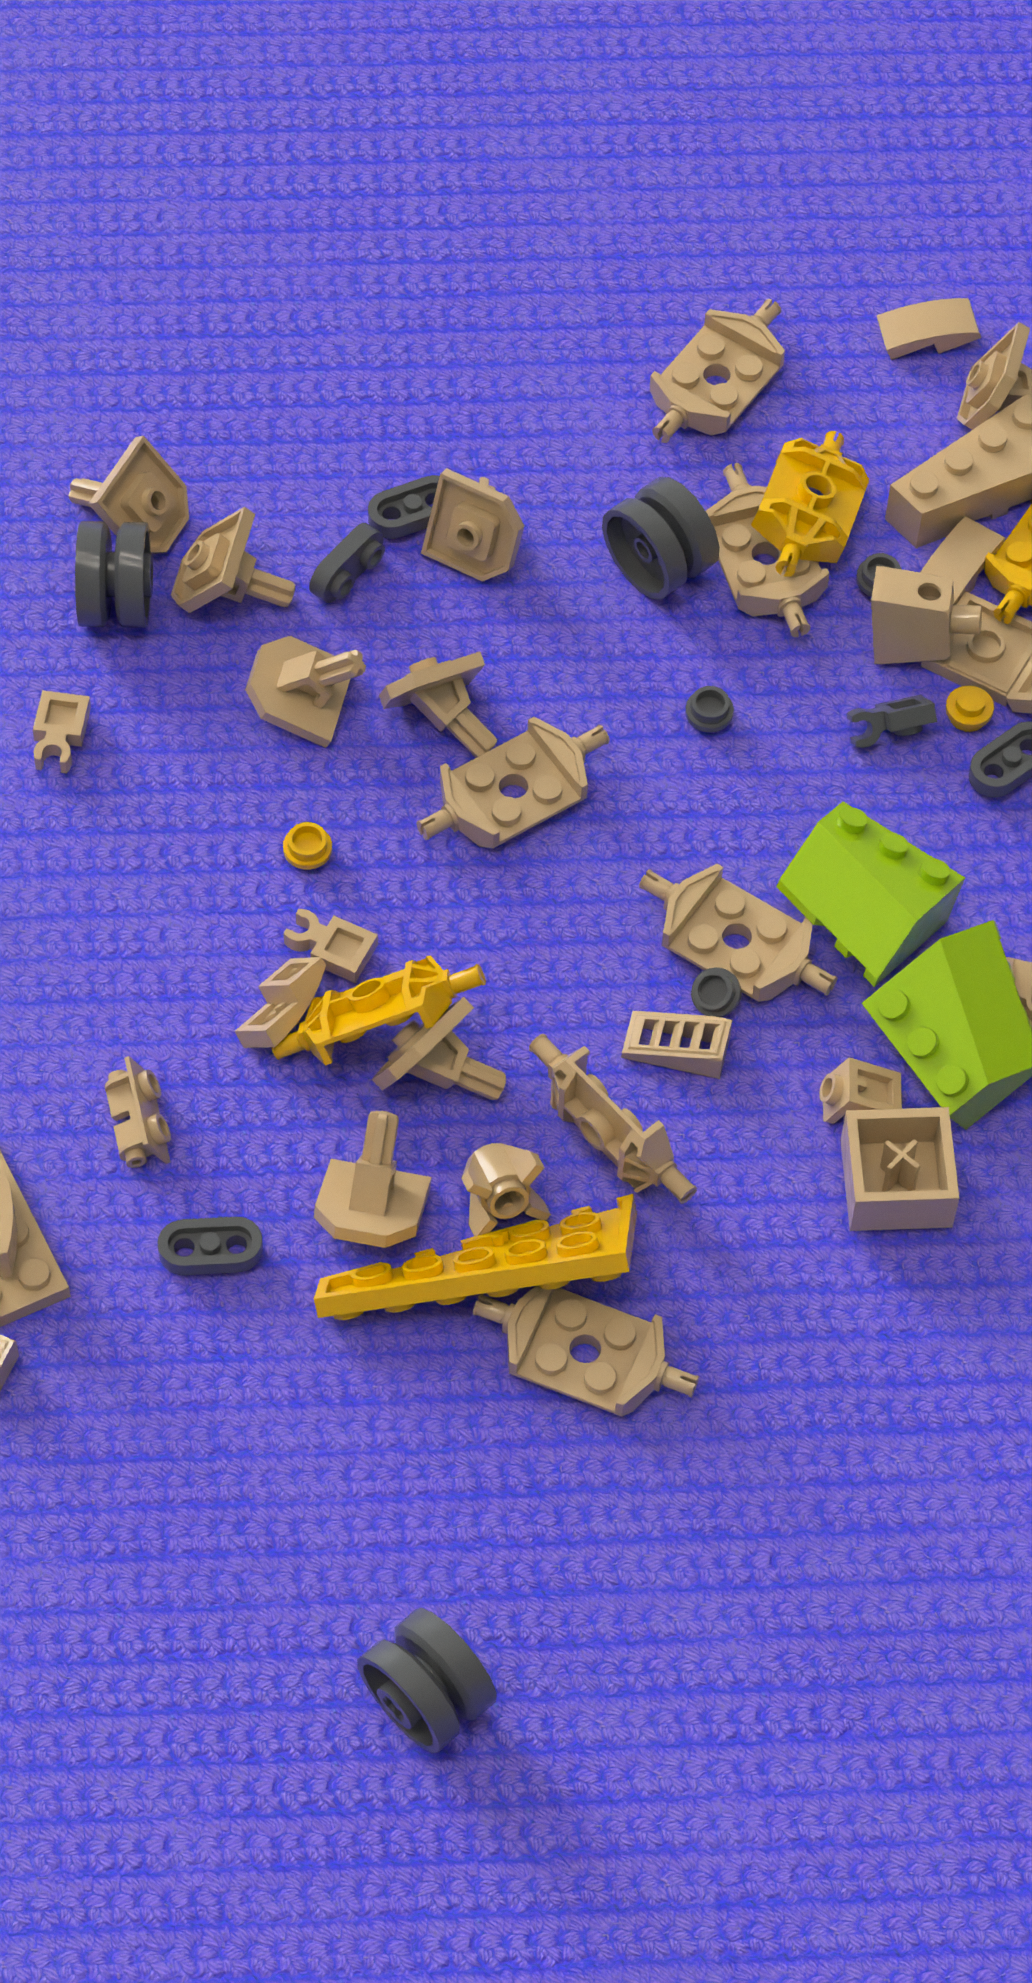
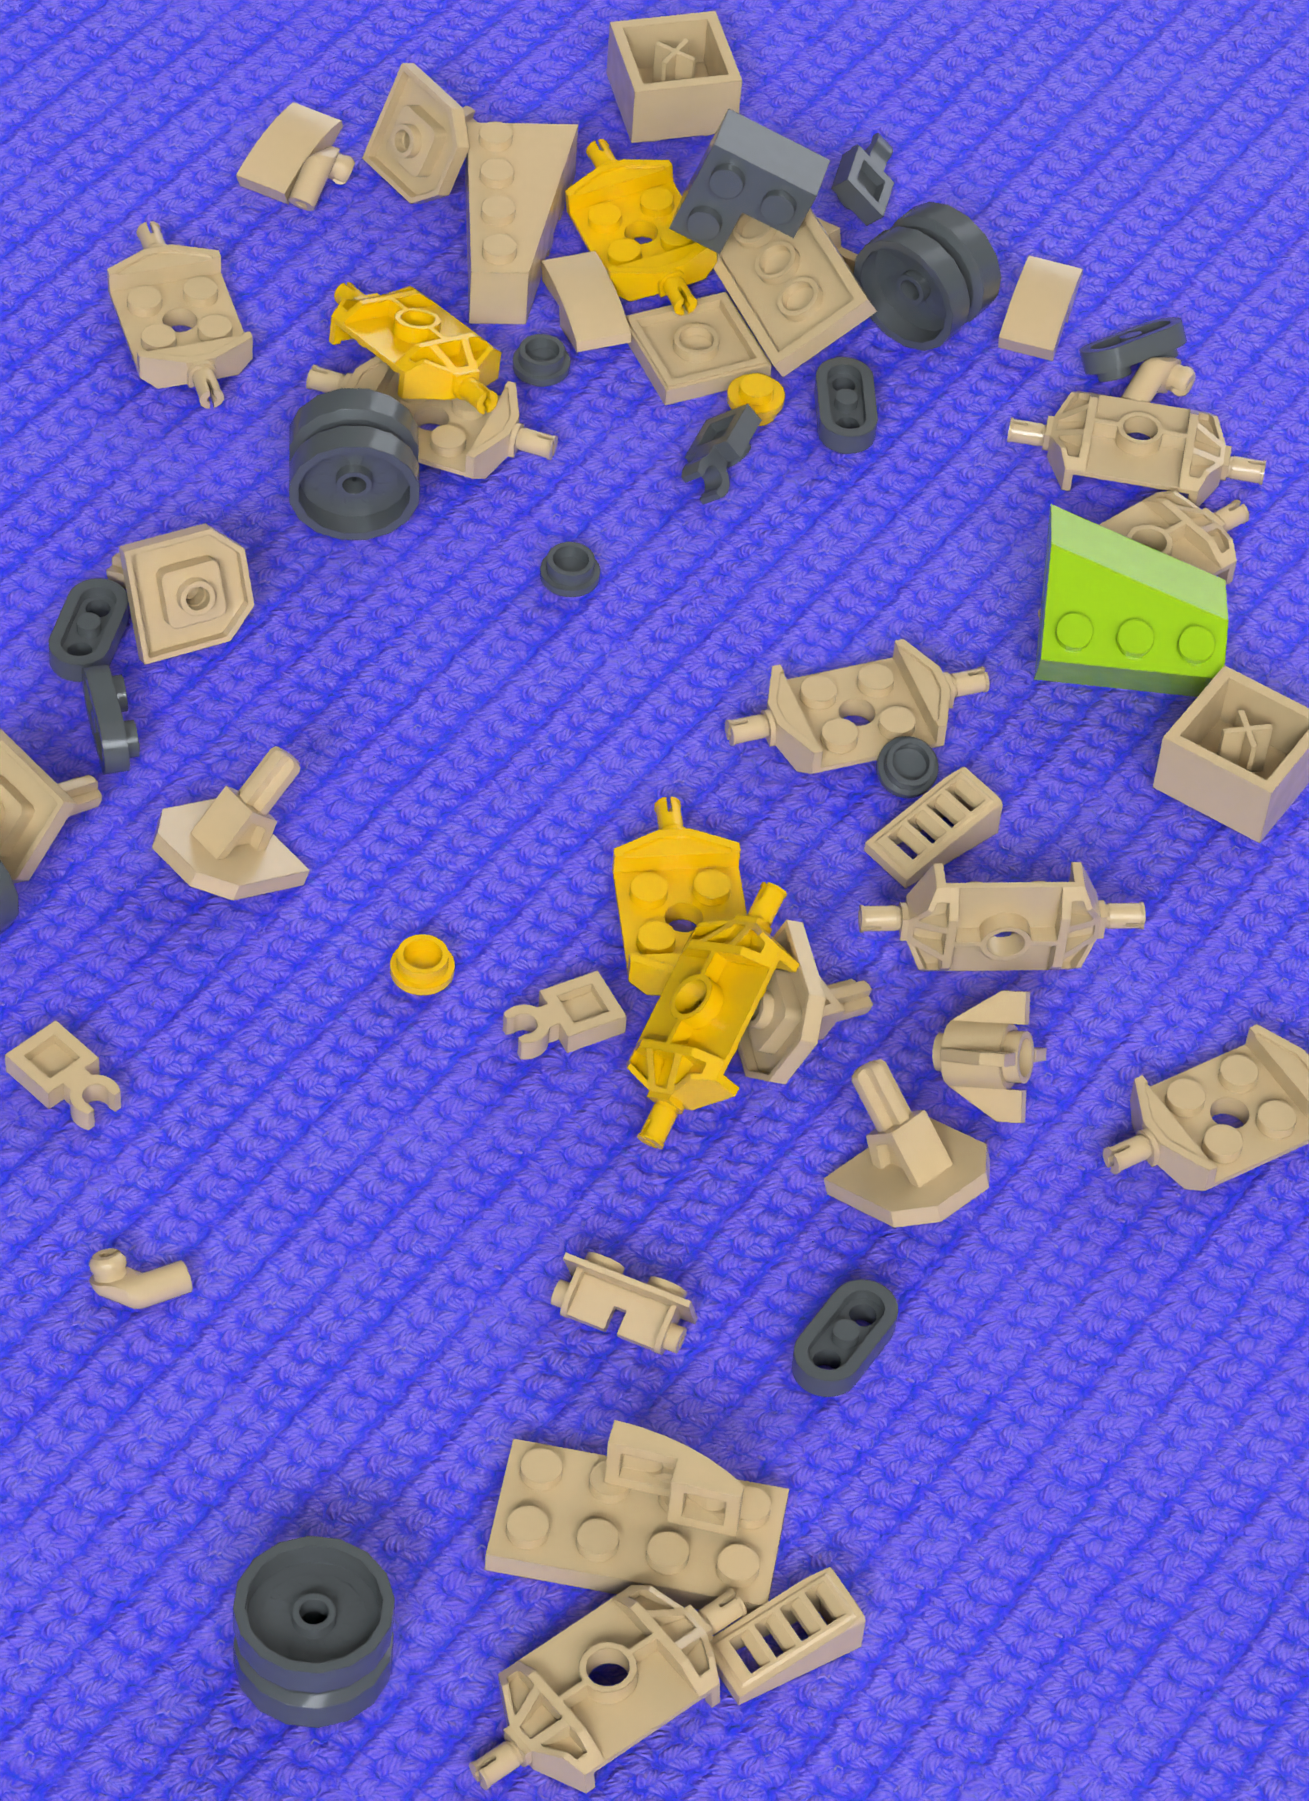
camera: 55 degrees left, 10 degrees down
(287, 999) = (606, 1095): tan slope -> none
(443, 698) = (367, 741): tan piece -> none
(490, 922) = (668, 879): none -> yellow plate
(491, 1263) = (1082, 1108): yellow wing -> none
(539, 760) = (515, 726): tan plate -> none
(859, 1087) = (1115, 736): tan bracket -> none
(869, 889) = (912, 575): lime wedge -> none
(917, 616) = (639, 353): tan torso -> none
(923, 351) = (314, 174): none -> tan arm

